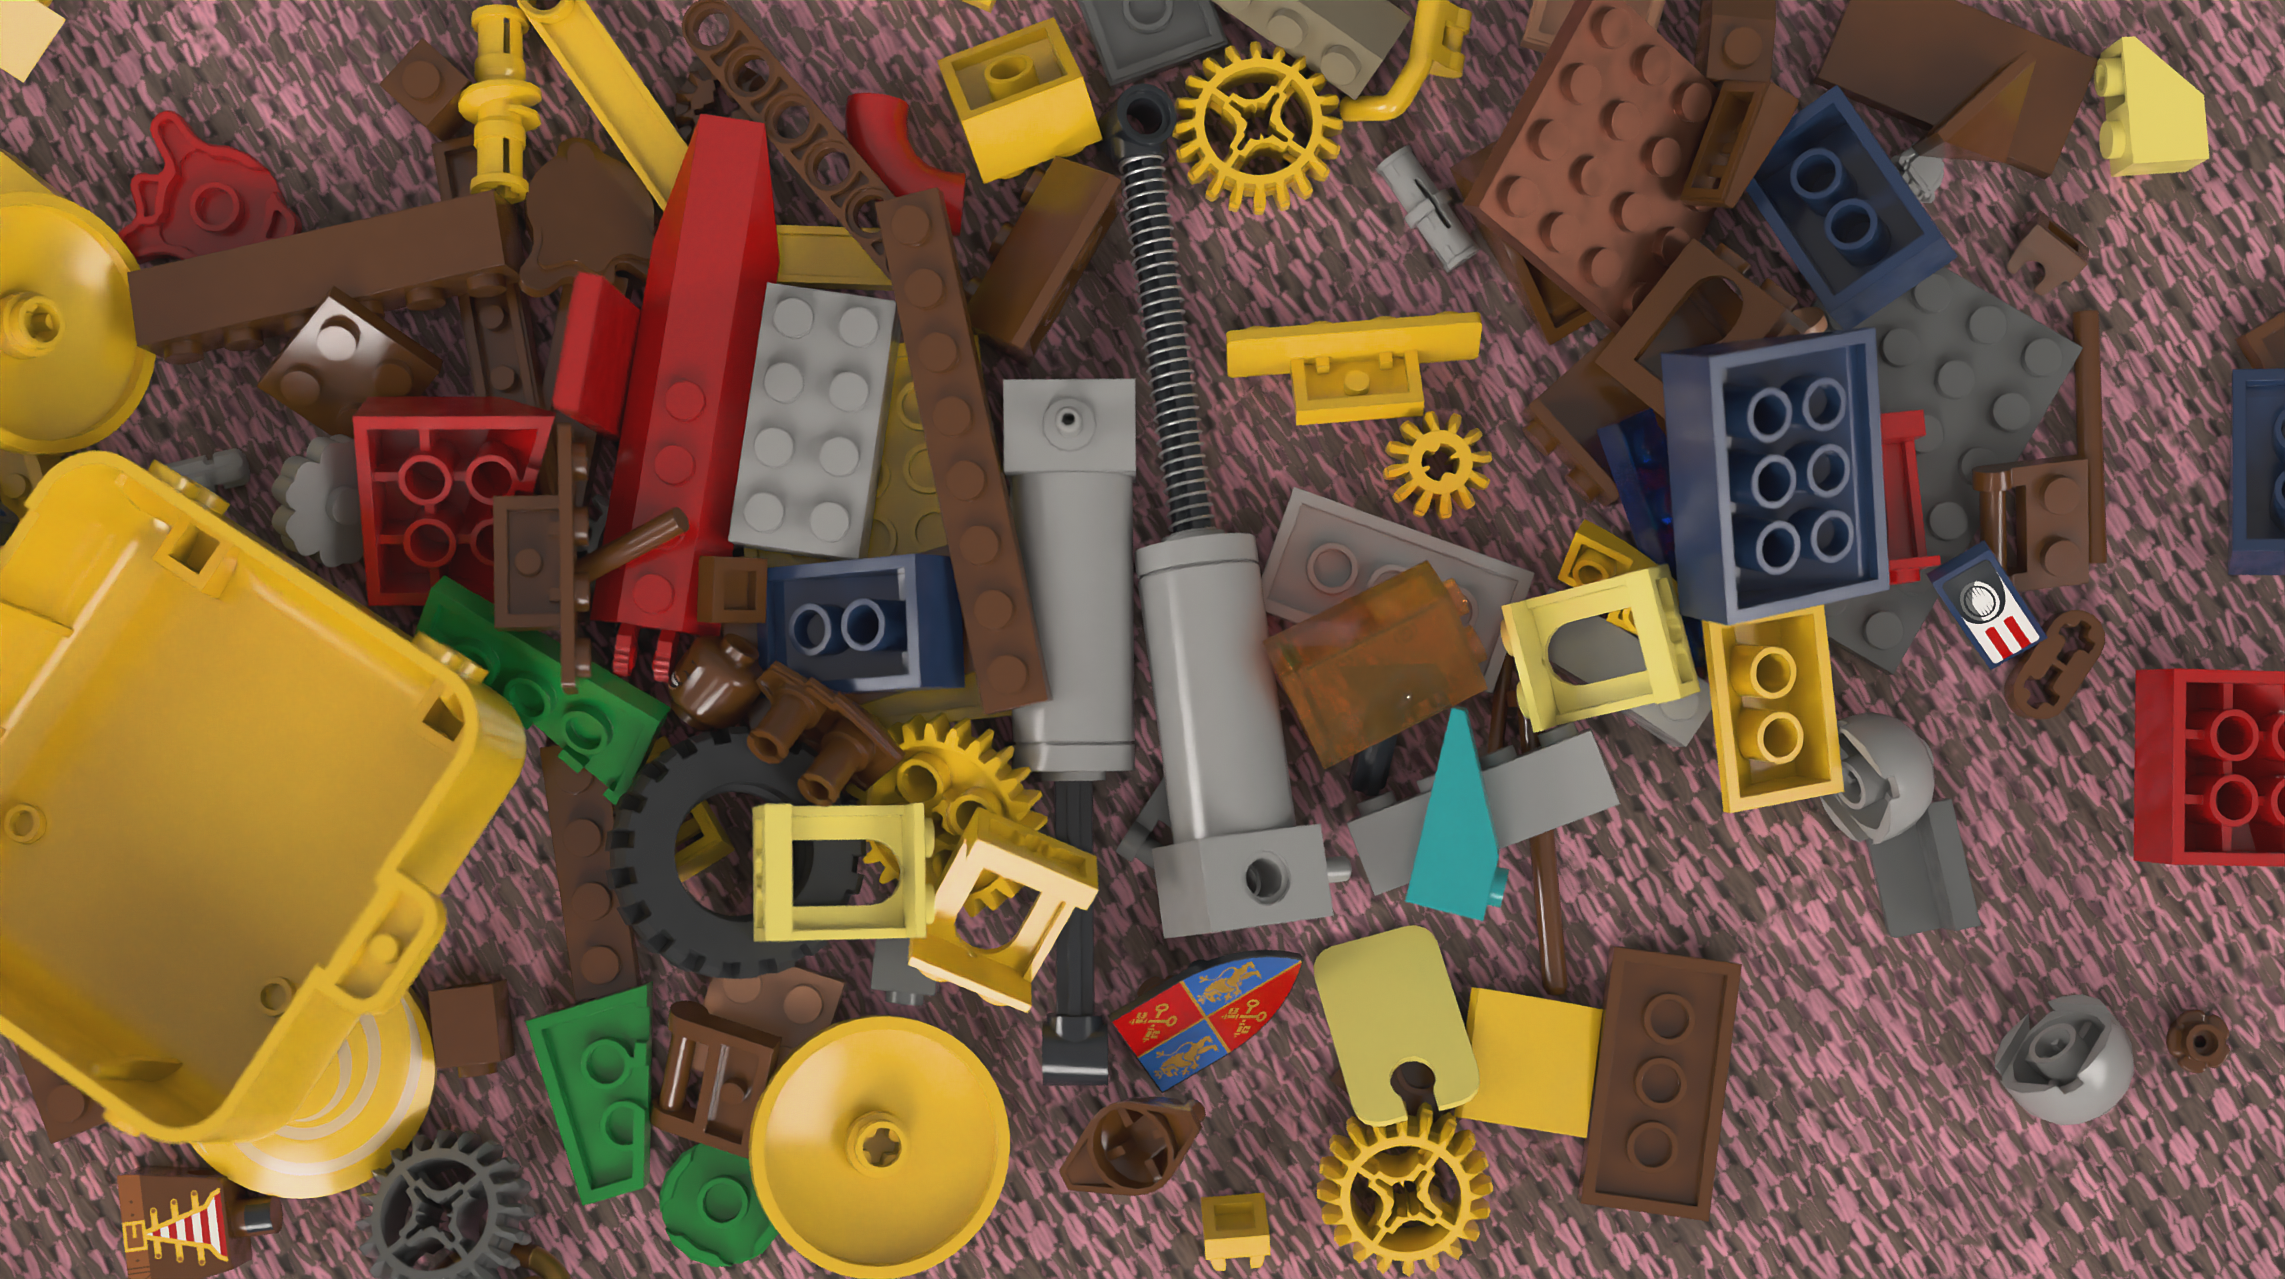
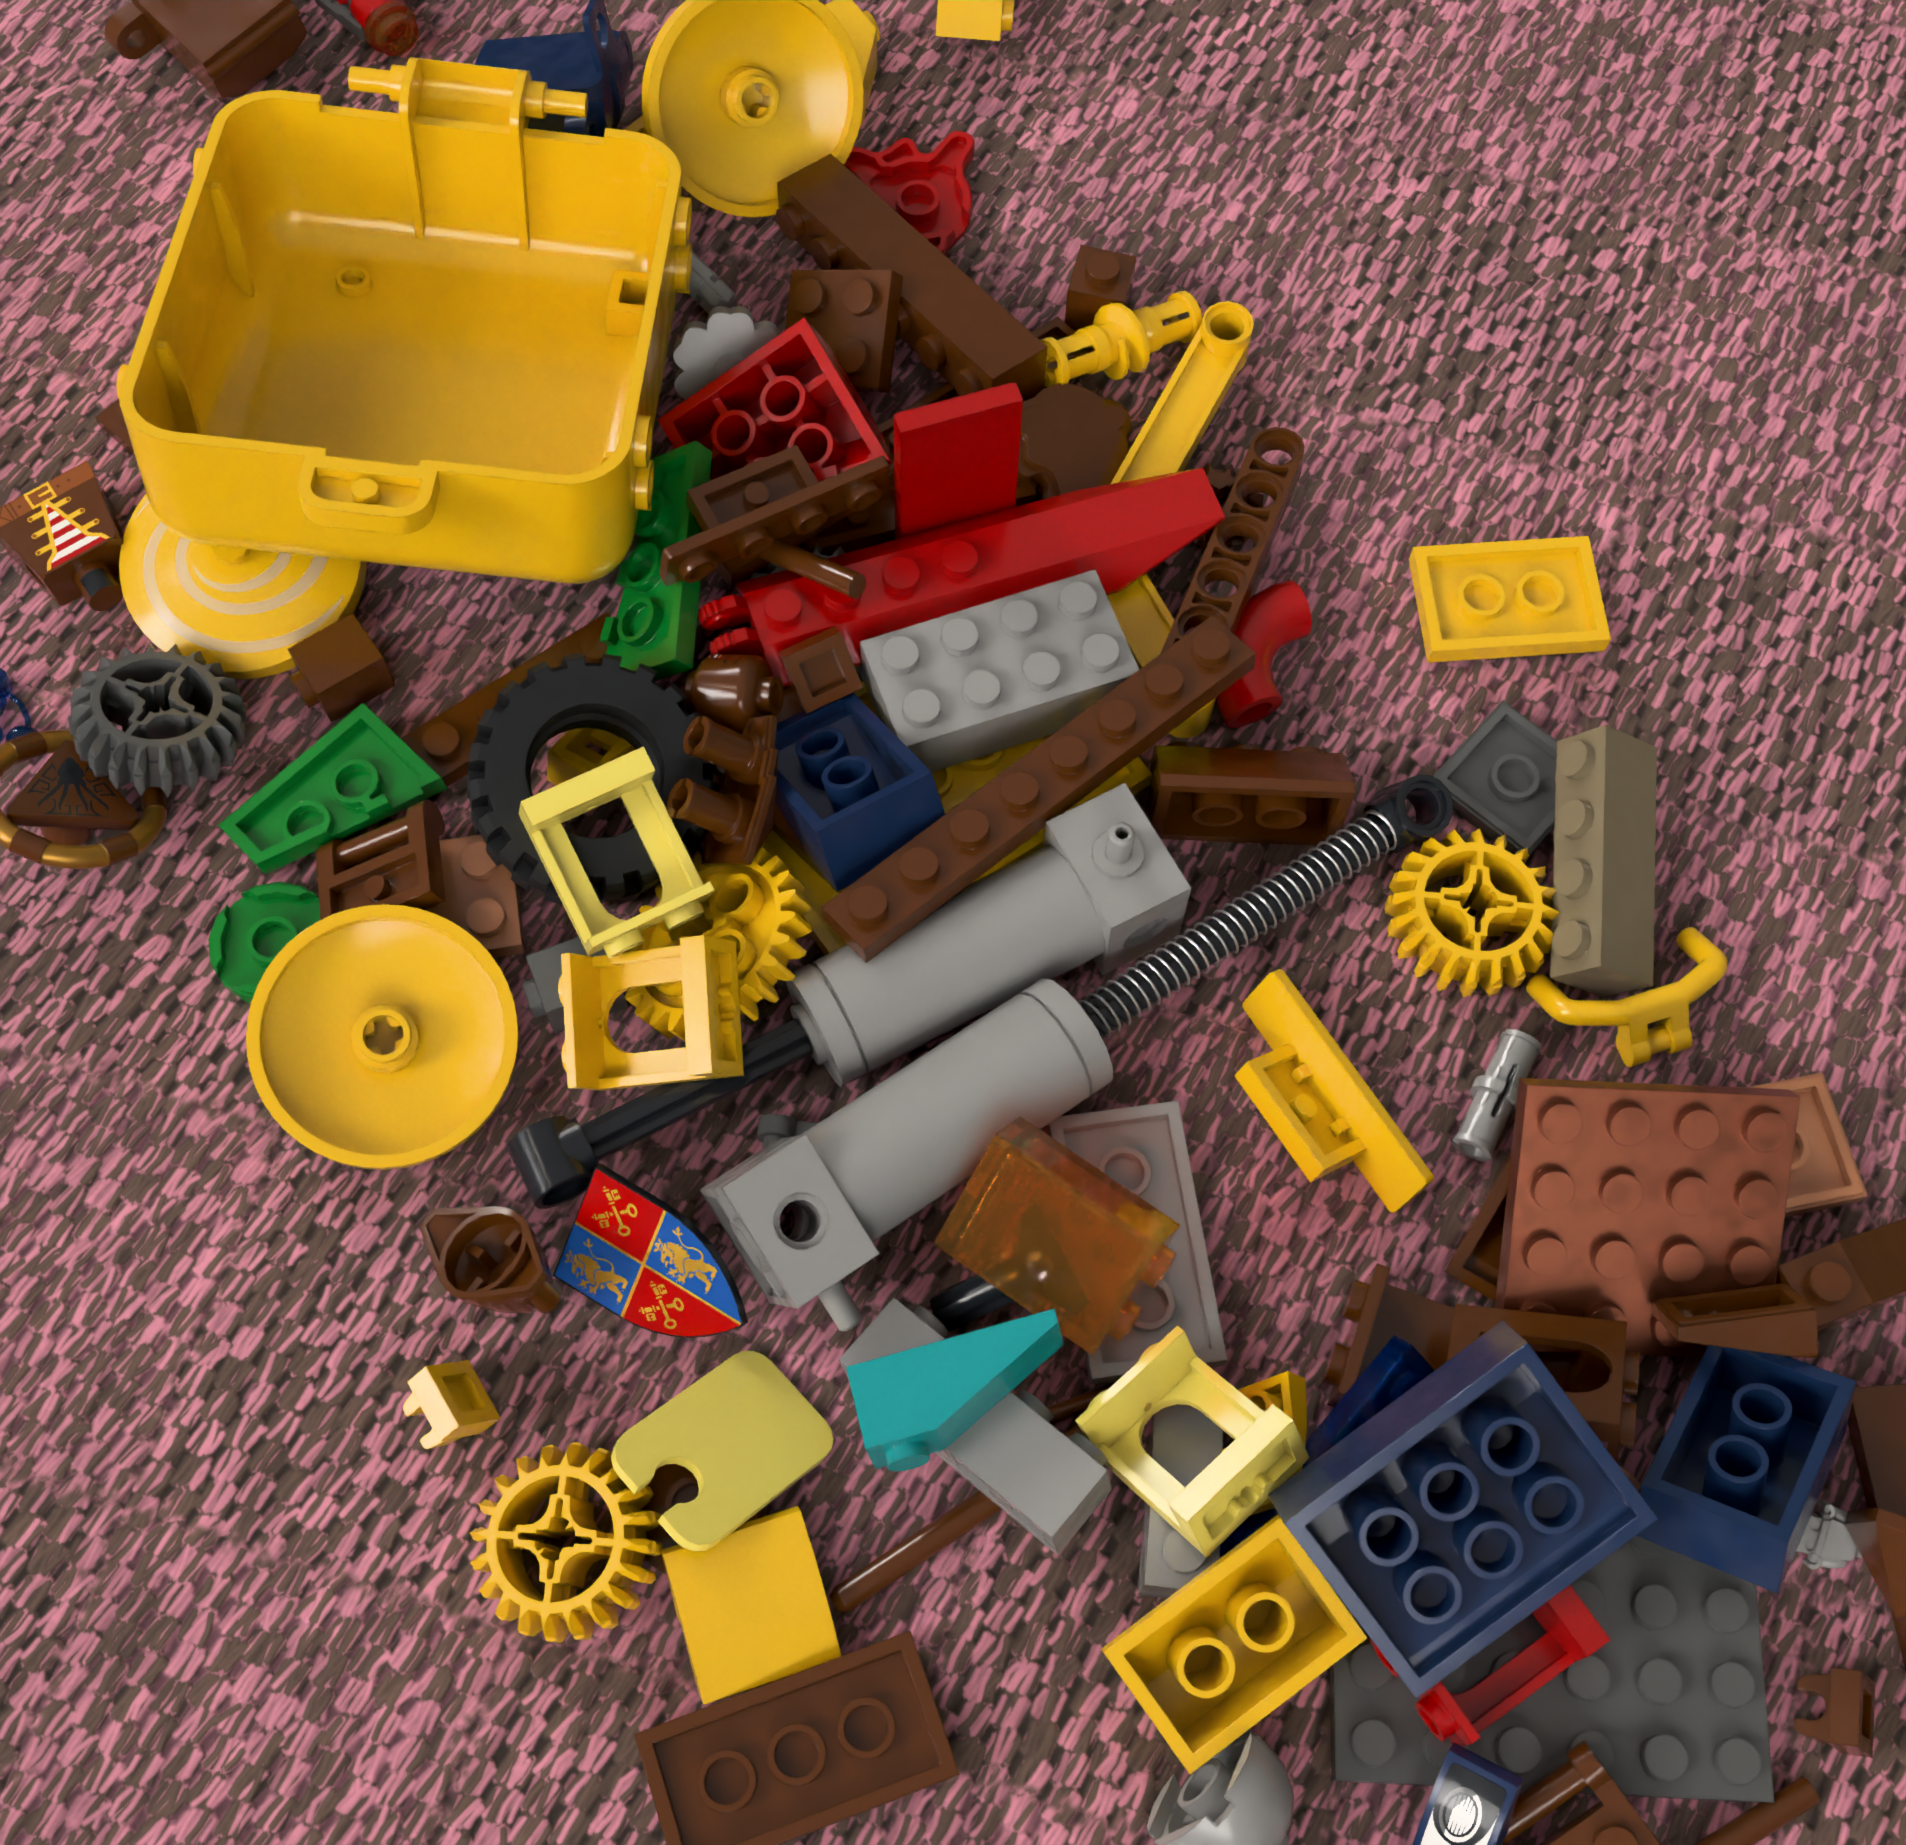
camera: 60 degrees right, 20 degrees down
(1020, 100) = (1367, 713): yellow slope -> none
(1448, 484) = (1258, 1235): yellow gear -> none

